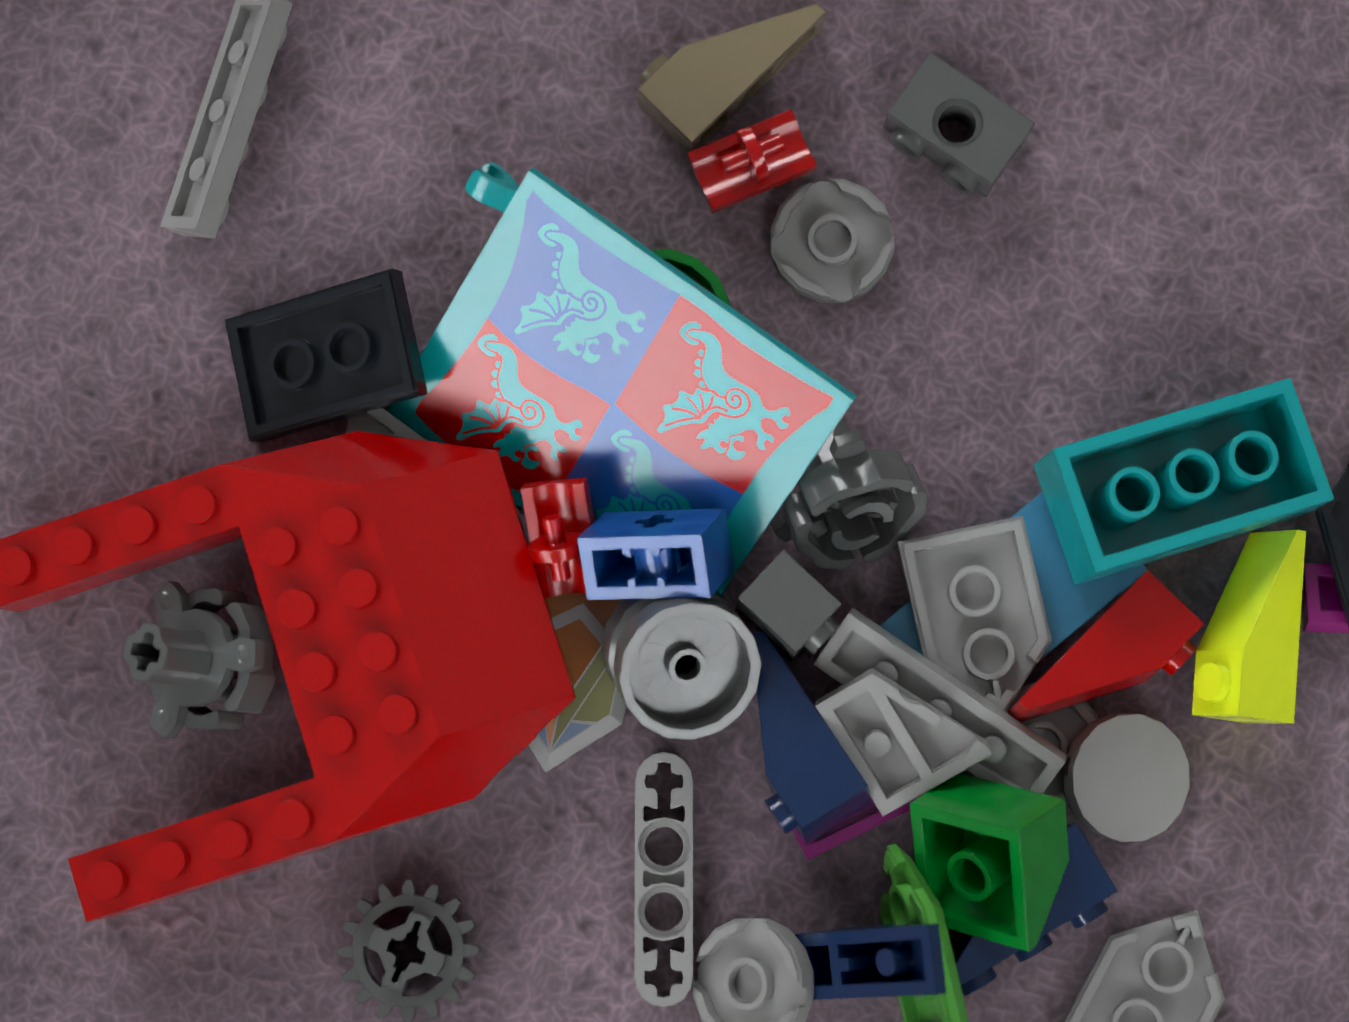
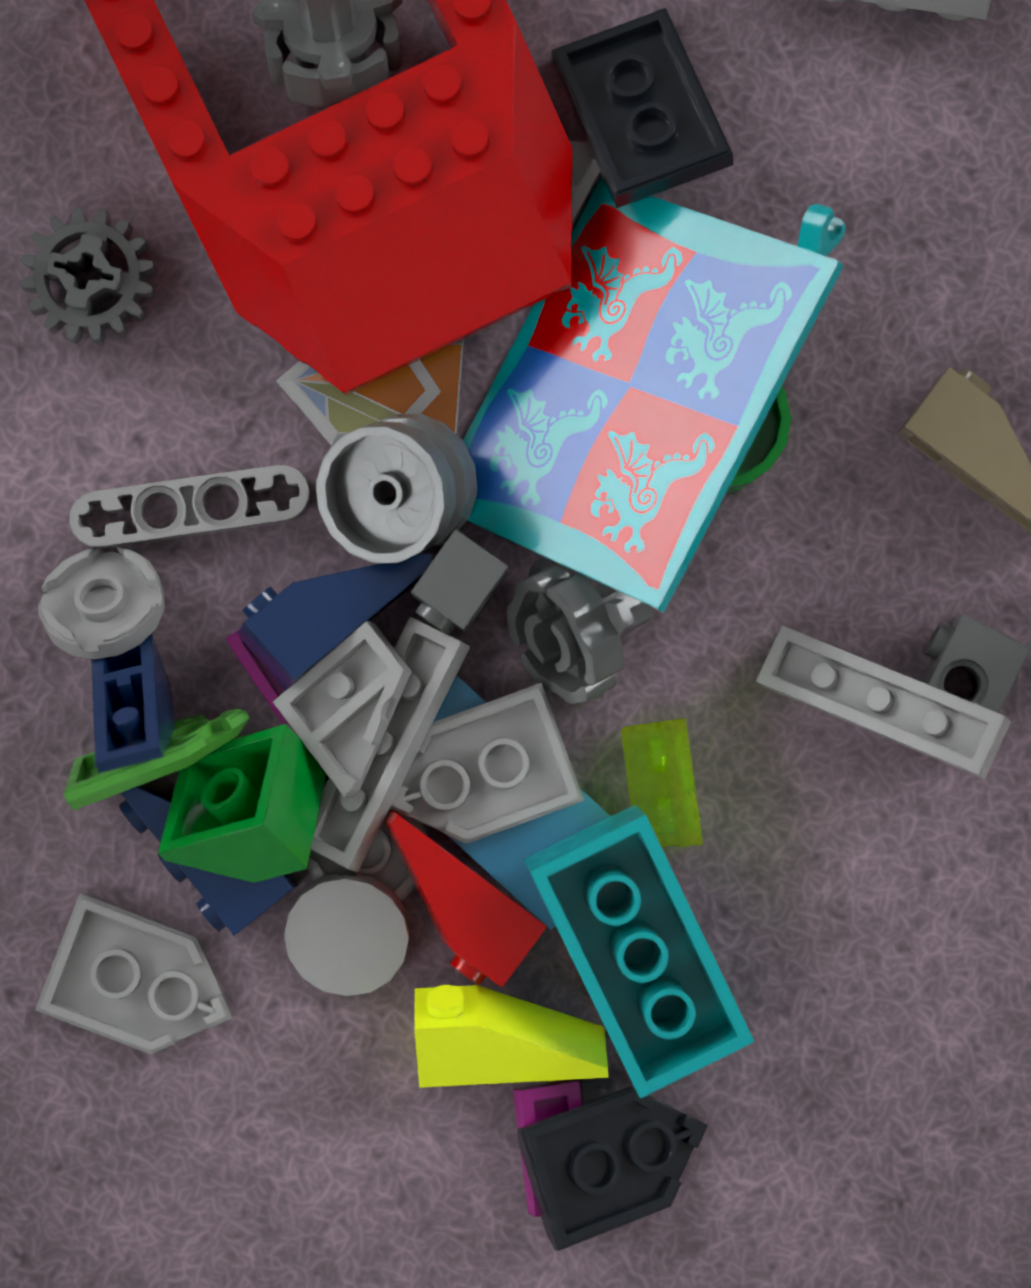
camera: 85 degrees right, 5 degrees up
(555, 519) = (498, 358): red hips -> none
(656, 554) = (489, 447): blue brick -> none
(751, 161) = (896, 489): red hips -> none
(826, 264) = (811, 593): light grey tile -> none
(965, 202) = (884, 702): none -> light grey plate
(1011, 432) = (663, 780): none -> clear neon green bracket

